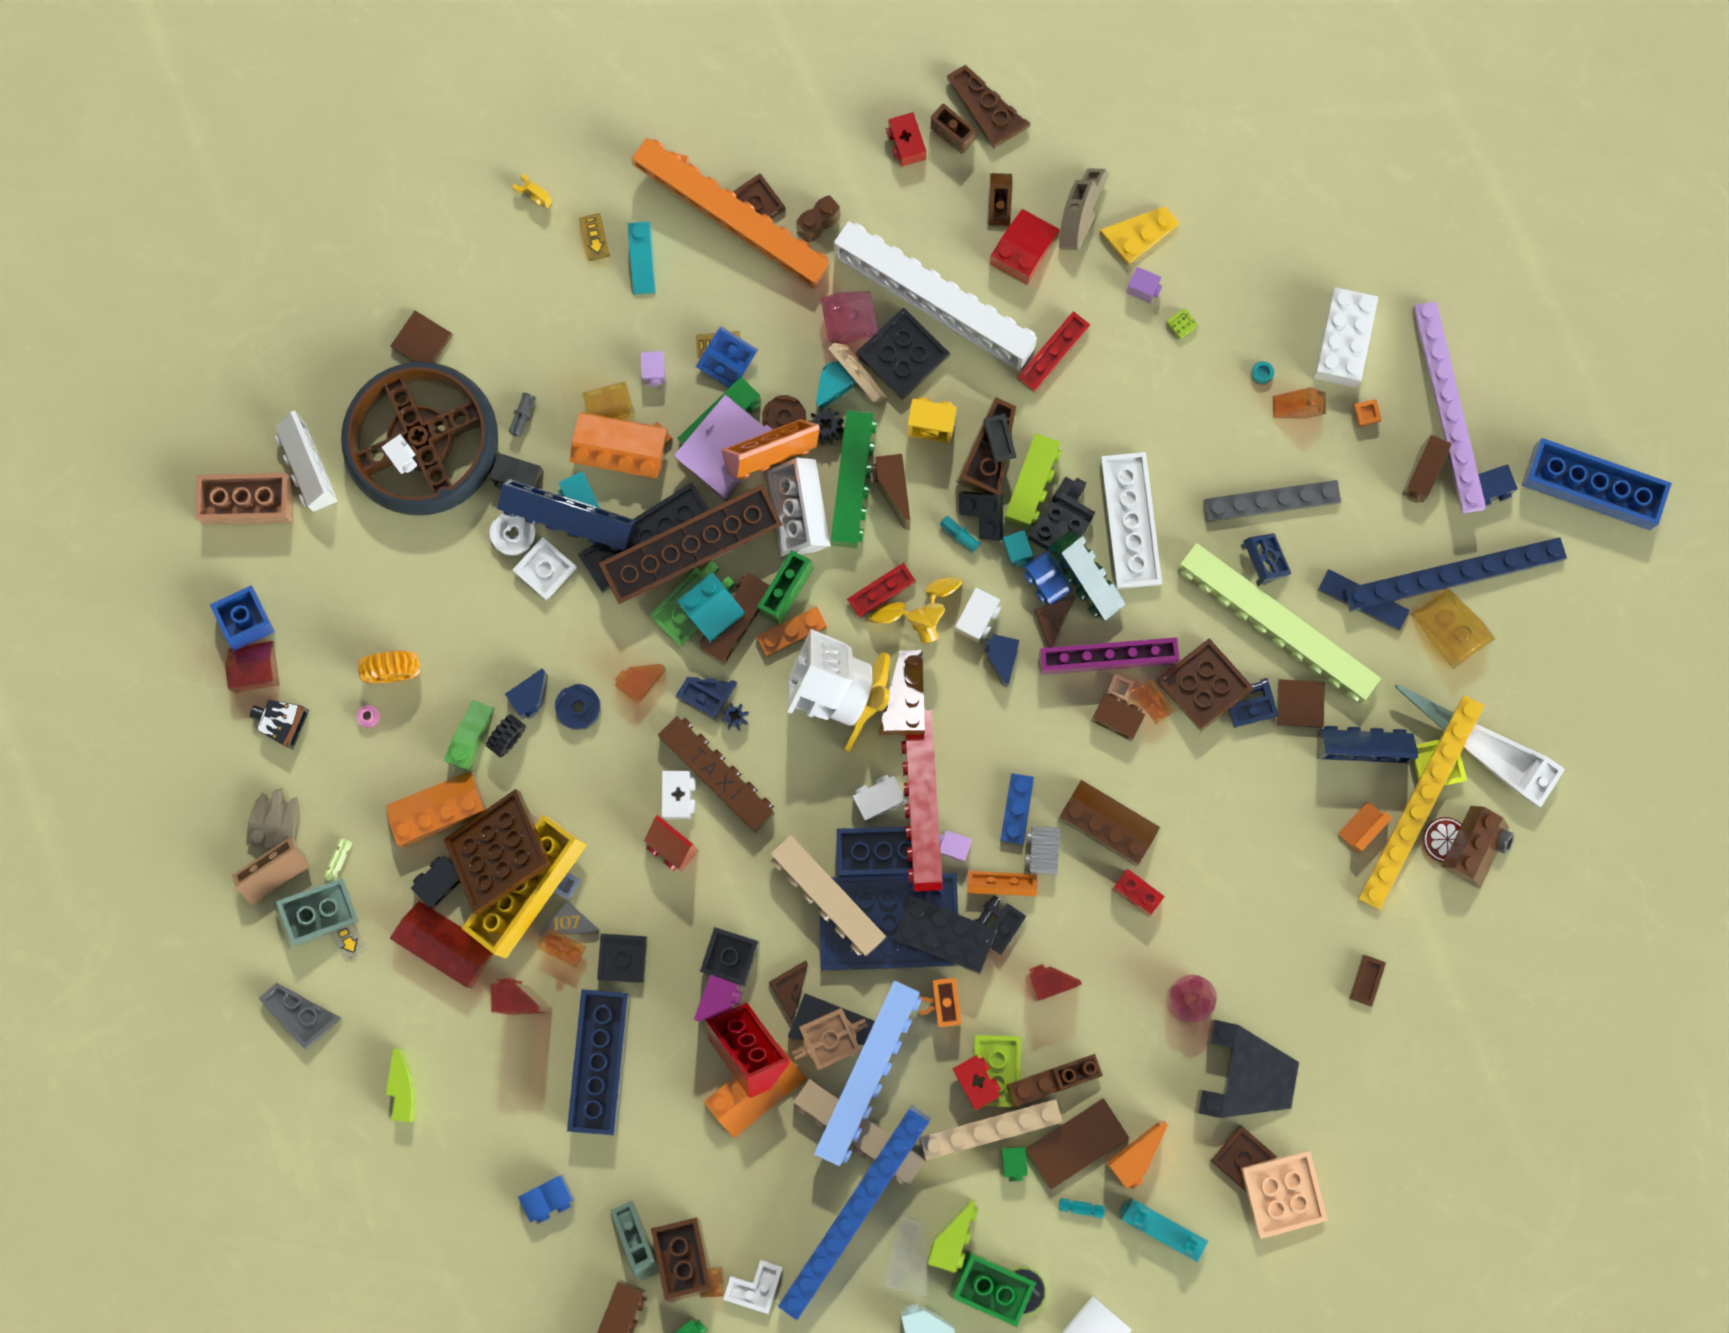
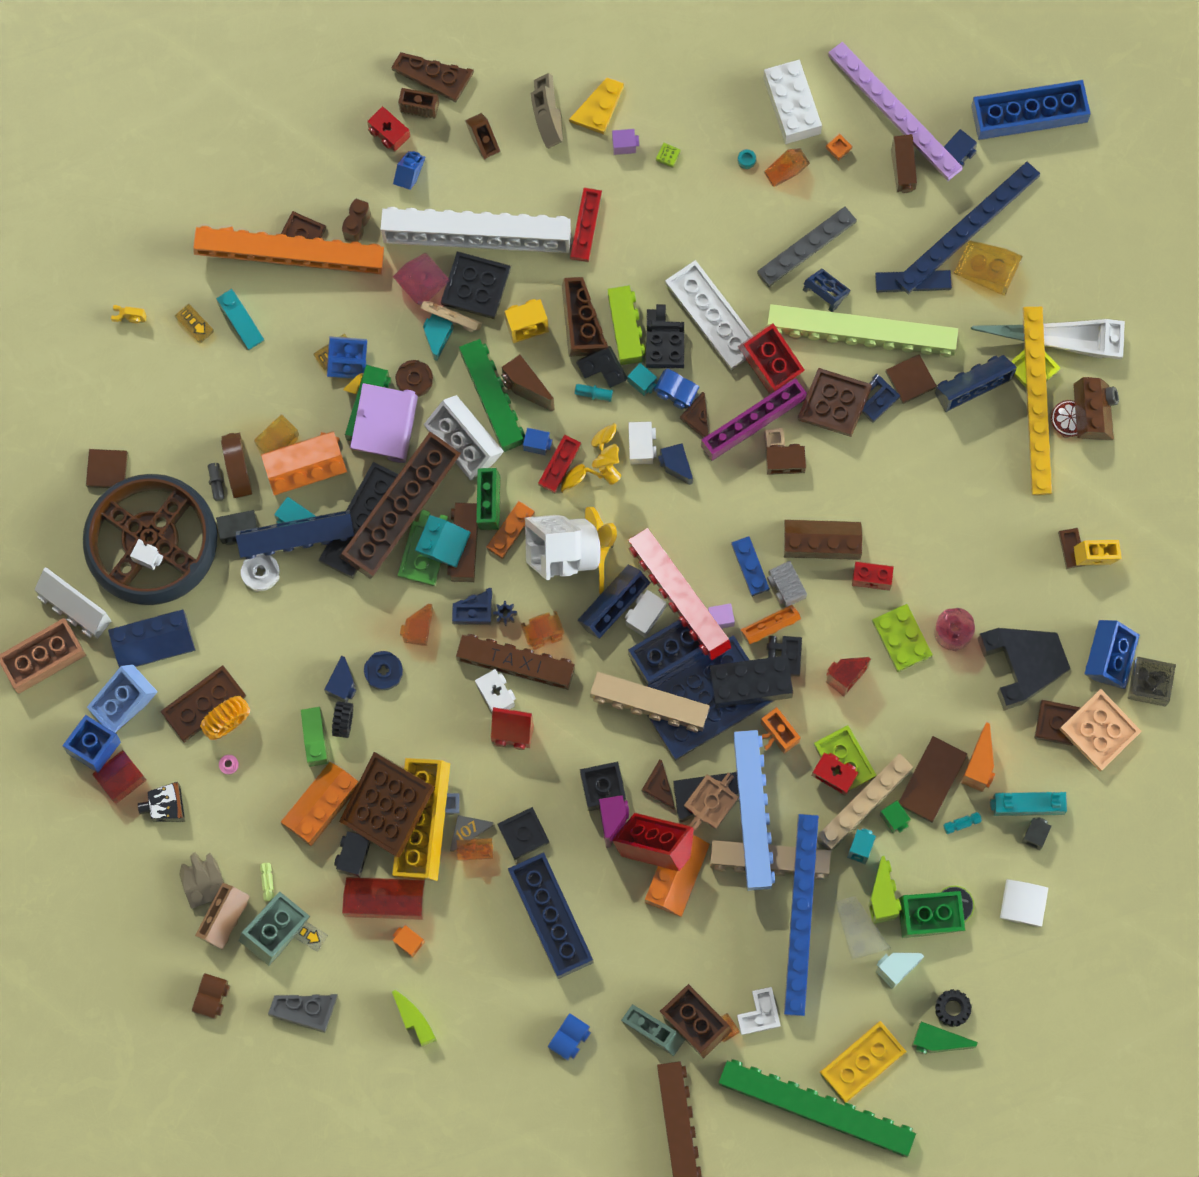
camera: 30 degrees left, 5 degrees down
(213, 946) = (210, 996): none -> reddish brown brick
(300, 587) = (122, 698): none -> light blue slope
(364, 544) = (152, 639): none -> dark blue slope
(378, 634) = (190, 709): none -> reddish brown tile
(441, 1003) = (408, 940): none -> orange brick
(514, 998) = (467, 899): clear red slope -> none
(544, 568) = (299, 584): white plate -> none
(549, 407) = (236, 465): none -> reddish brown arch
(653, 368) = (296, 394): lavender brick -> none
(716, 391) = (354, 385): none -> yellow slope
(763, 757) = (543, 629): none -> clear orange brick
(770, 448) = (419, 403): orange slope -> none
(825, 419) = (444, 363): black gear -> none
(853, 768) = (614, 601): none -> dark blue brick
(871, 554) = (537, 441): none -> blue brick
(903, 194) = (408, 170): none -> blue slope
(906, 704) = (630, 537): wing -> none
(960, 1174) = (861, 845): none -> teal brick
(999, 438) = (584, 306): pearl dark grey tile -> none
(1023, 246) = (520, 161): red slope -> none
(1054, 1080) = (890, 742): reddish brown slope -> none
(1086, 575) = (704, 369): wedge -> none
(1132, 974) = (902, 637): none -> lime plate
(1153, 701) = (804, 433): clear orange hips -> none
(1153, 1265) = (1037, 833): none -> pearl dark grey brick
(1164, 601) = (771, 358): none -> red brick
(1344, 1119) = (1112, 653): none -> blue slope
(1364, 827) = (1006, 441): orange panel -> none
(1369, 1174) = (1151, 681): none -> clear smoke brick
(1391, 1003) = (1097, 552): none -> yellow brick

